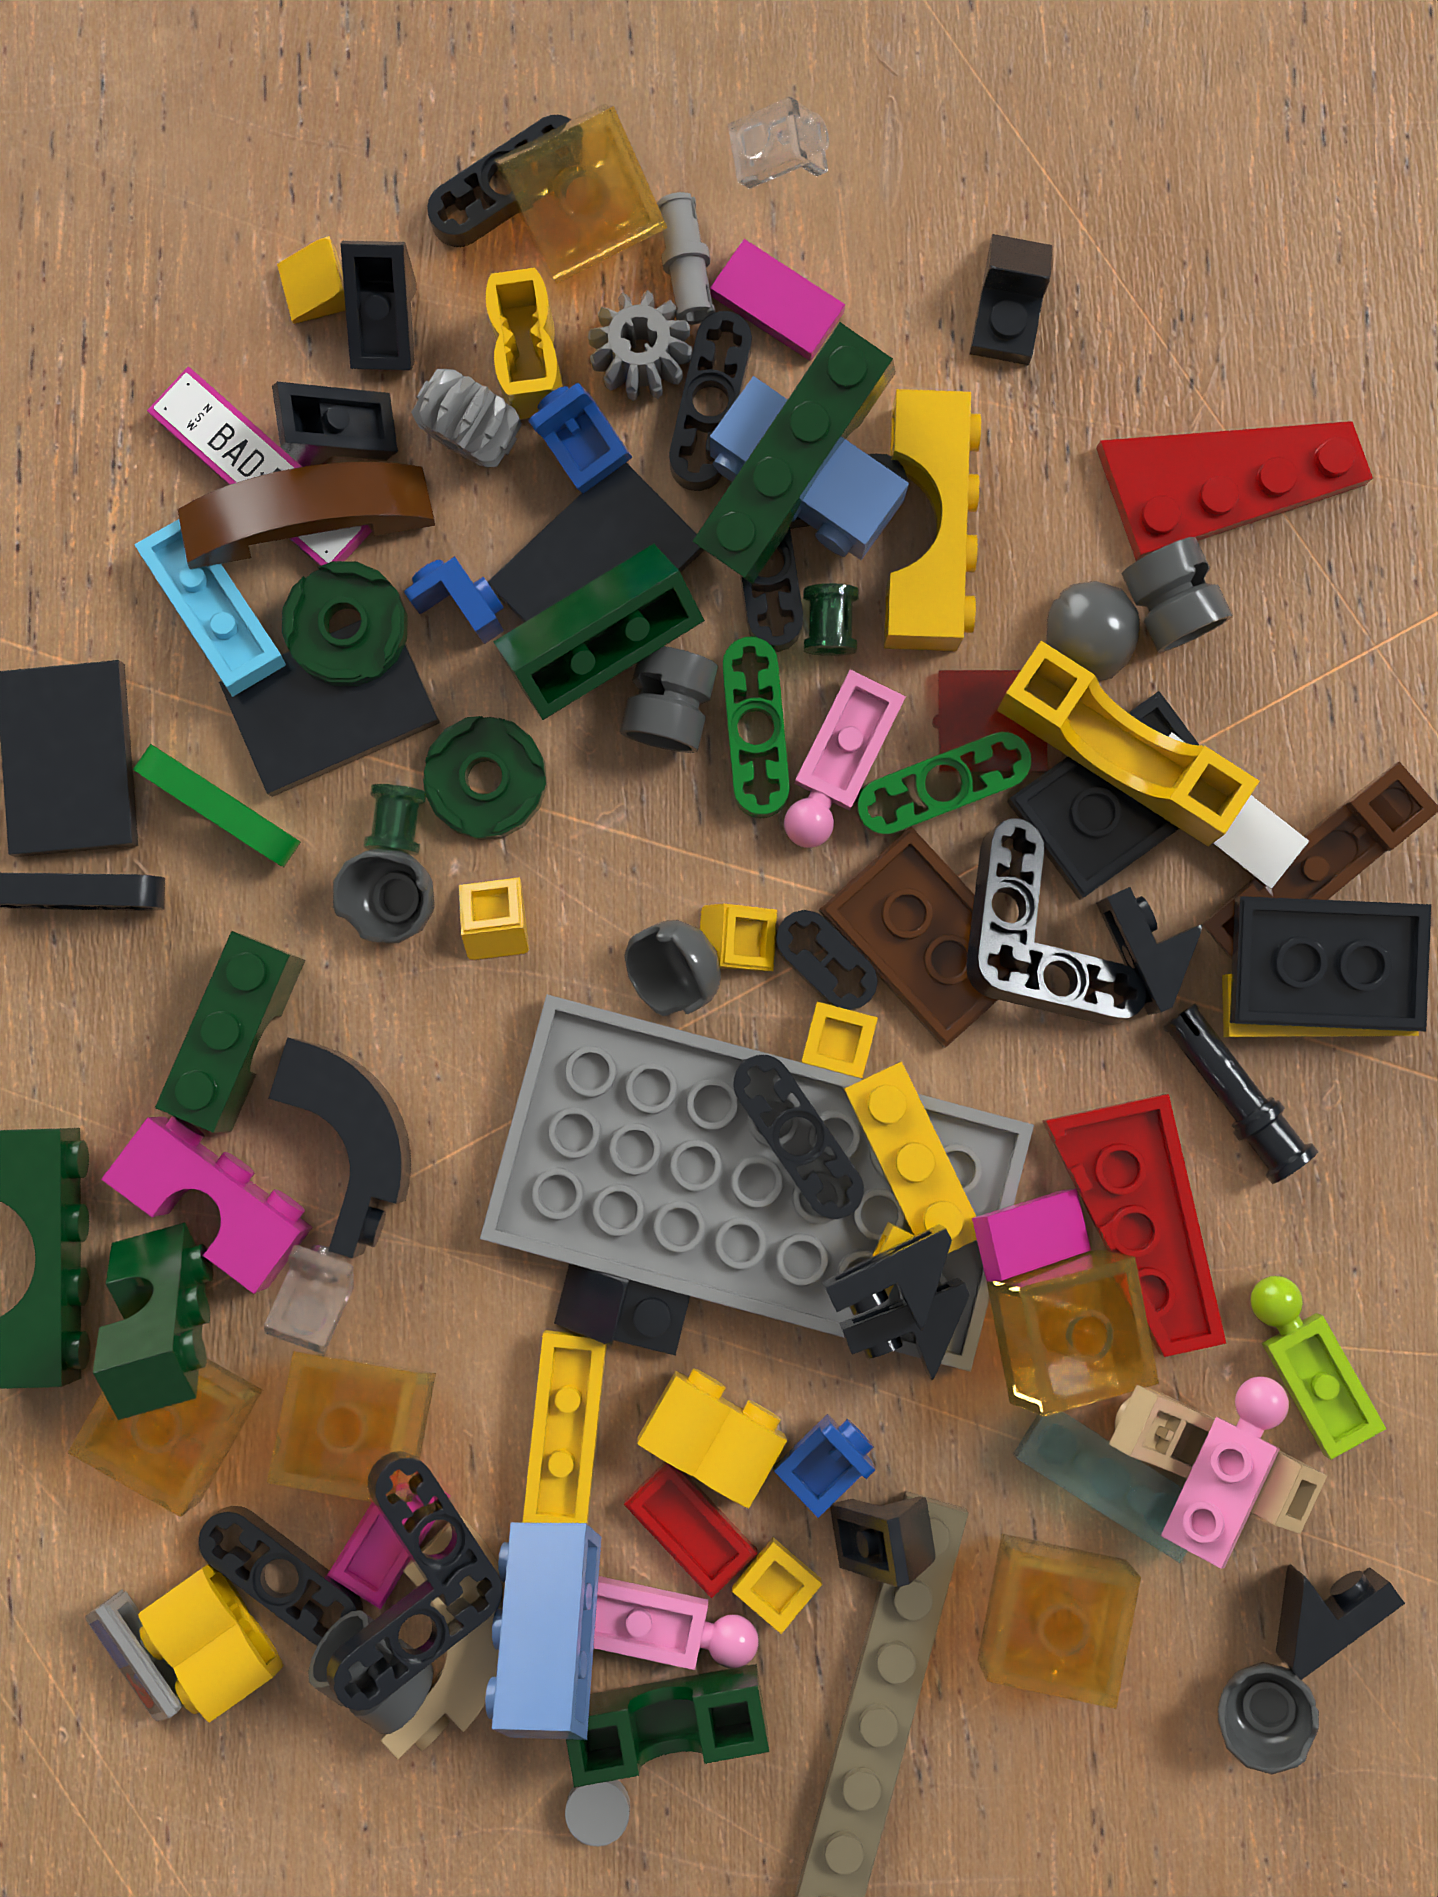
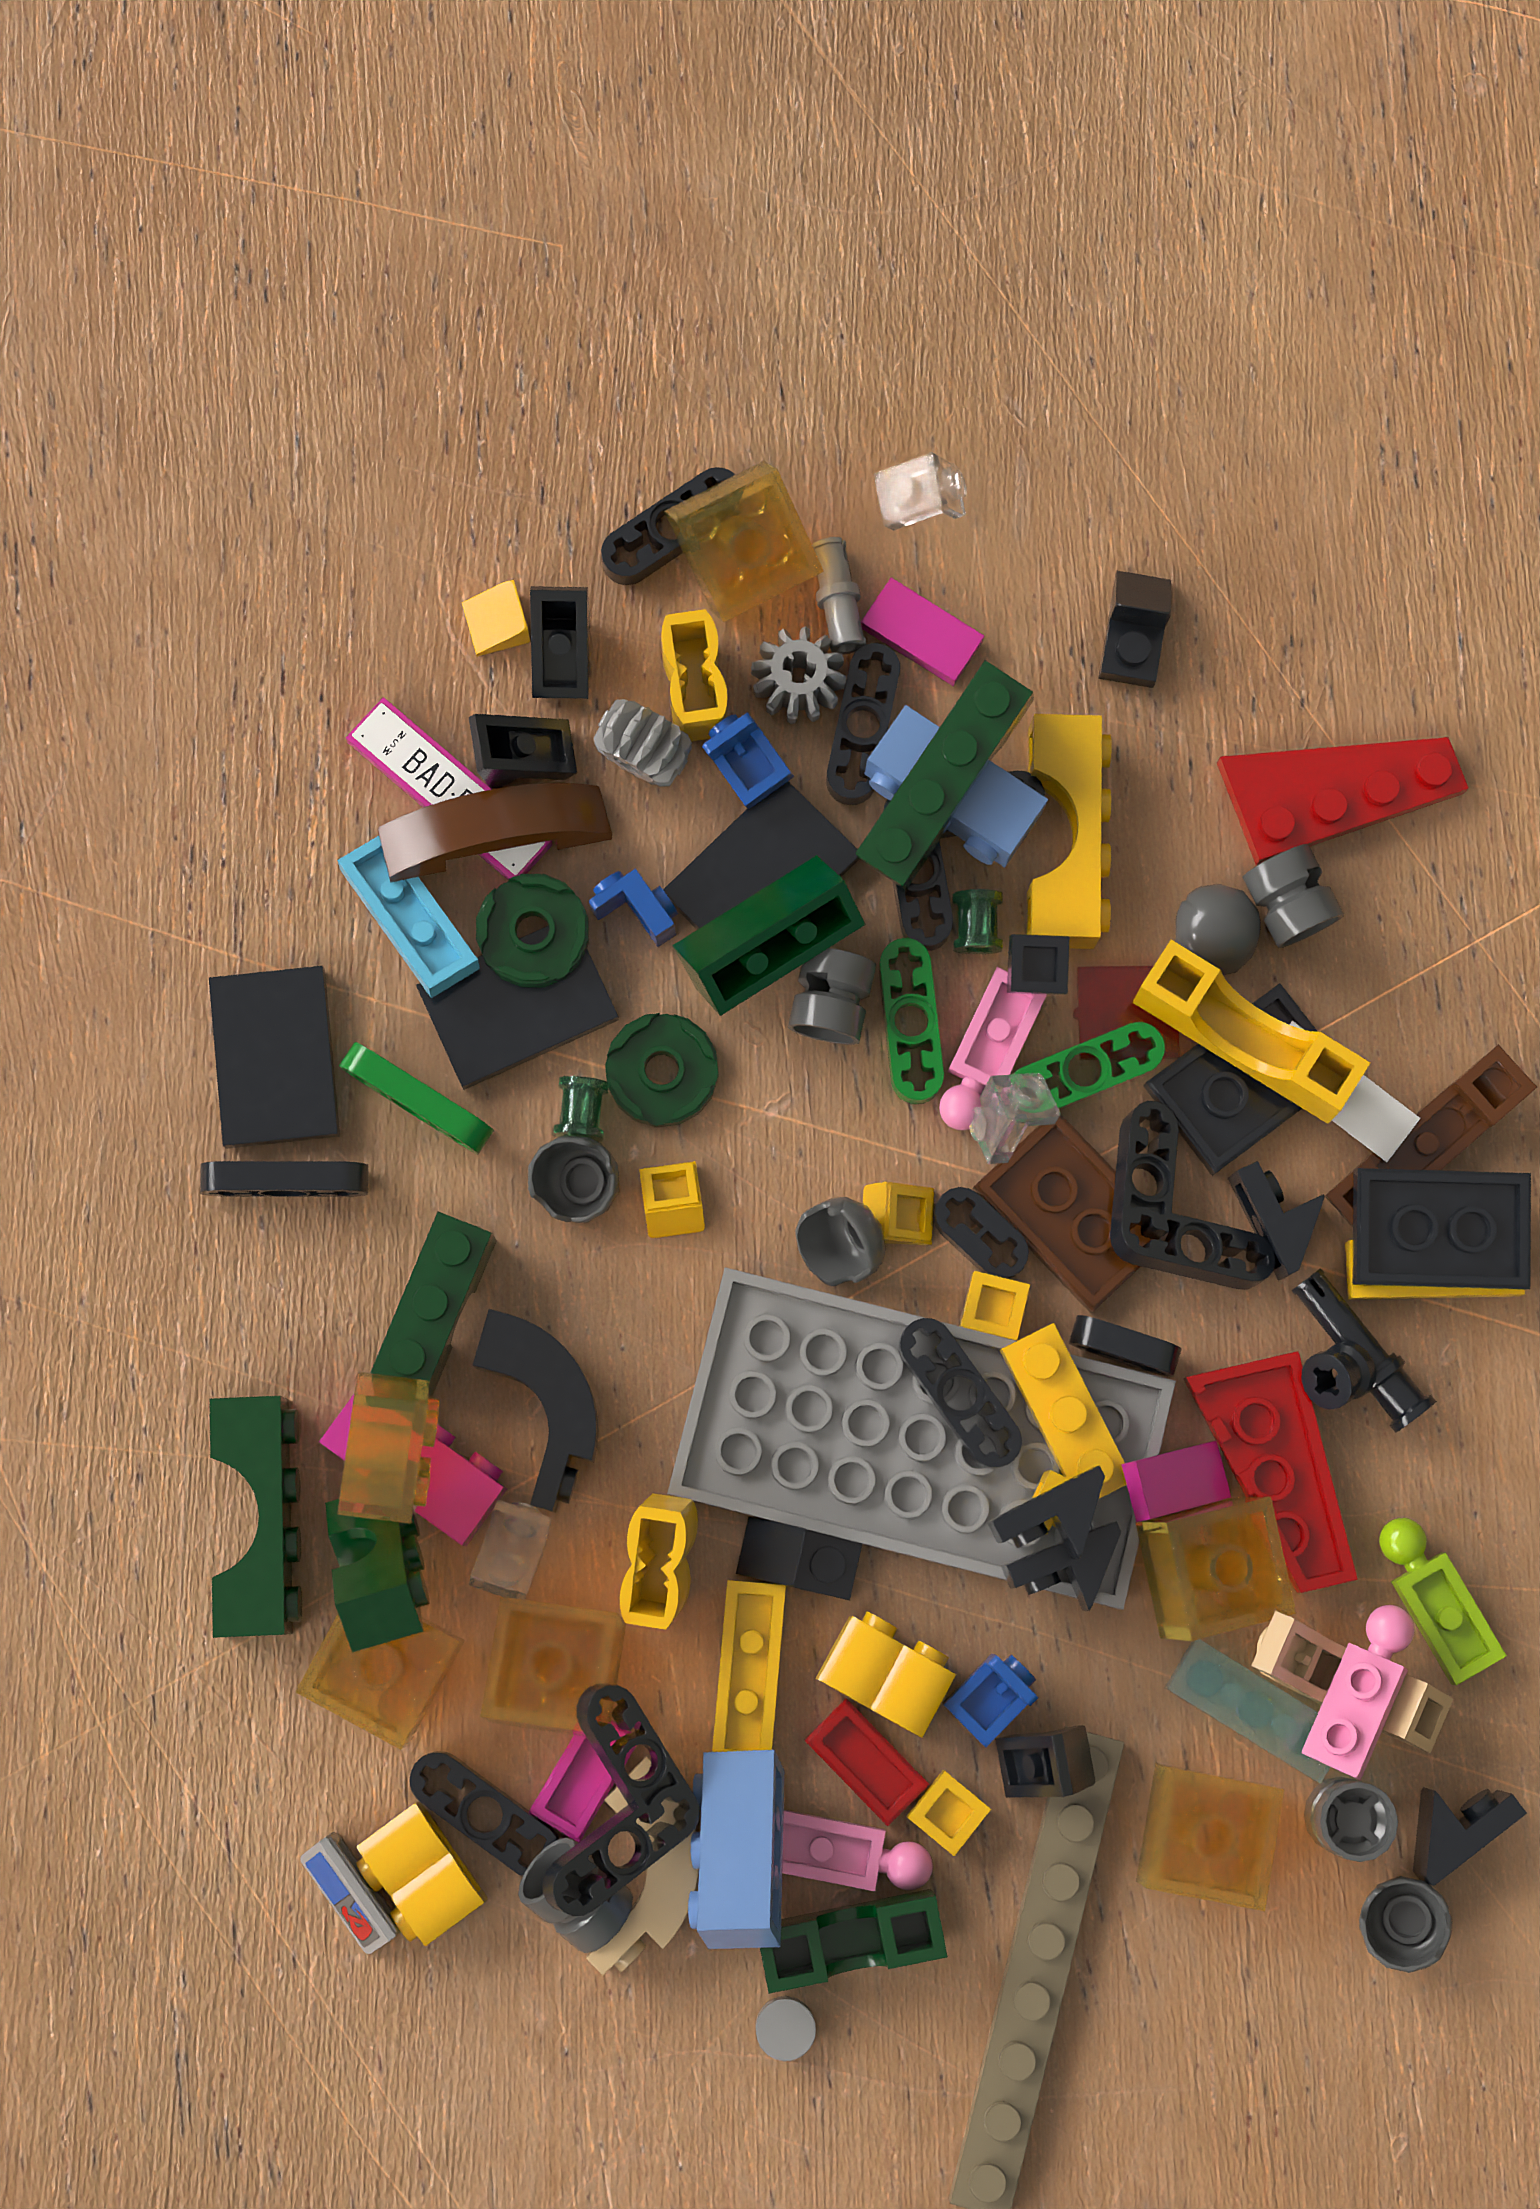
camera: 10 degrees left, 5 degrees down
(160, 1194) = (384, 1448): none -> clear yellow brick
(466, 1314) = (659, 1573): none -> yellow brick
(857, 826) = (1006, 1111): none -> clear bracket
(894, 667) = (1038, 964): none -> black plate
(980, 1085) = (1125, 1345): none -> black beam
(1212, 1605) = (1351, 1819): none -> dark grey wheel
(1229, 1123) = (1354, 1377): none -> black wheel

